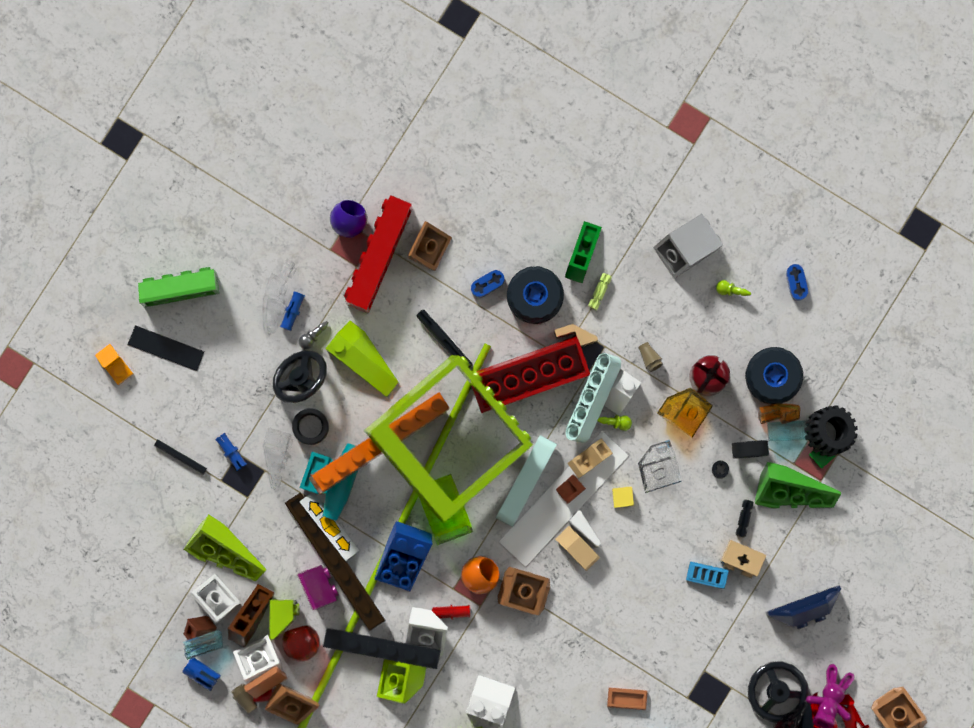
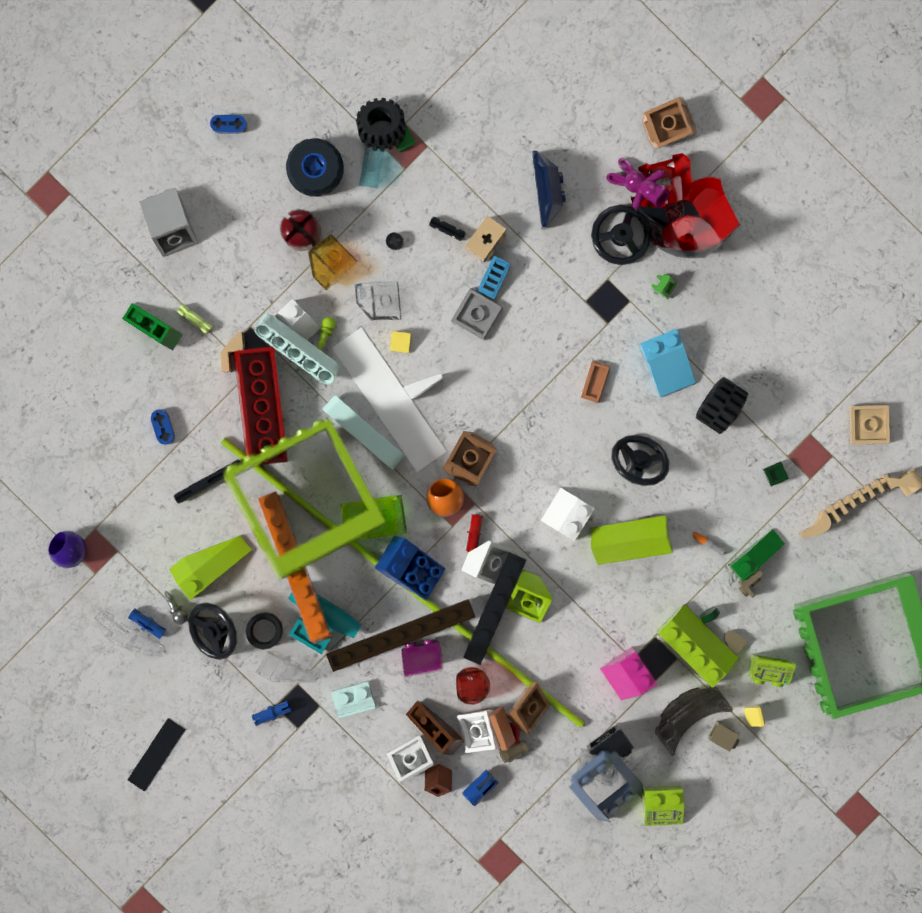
camera: 75 degrees left, 5 degrees up
(114, 364) = (161, 808): light orange slope -> none
(178, 288) = (99, 730): bright green slope -> none
(181, 457) = (265, 763): black bar -> none
(203, 644) = (452, 780): clear light blue tile -> none
(219, 545) = (358, 745): lime wedge -> none
(261, 529) = (353, 699): none -> light aqua plate
(282, 615) = (442, 699): lime slope -> none
(329, 527) = (366, 633): sticker -> none
(379, 254) = (109, 527): red brick -> none
(429, 246) = (112, 476): medium nougat slope -> none
(535, 295) = (183, 383): black wheel -> none
(570, 489) = (381, 391): copper panel -> none
(577, 548) = (440, 397): tan slope -> none
(590, 458) = (355, 365): tan slope -> none
(650, 357) = (270, 284): dark tan cone -> none
(667, 566) = (476, 314): none -> light grey tile
(724, 287) = (218, 195): lime bar -> none
(750, 449) = (381, 207): black tyre -> none
(784, 412) = (353, 165): clear orange slope -> none
(785, 486) = (426, 179): bright green wedge -> none

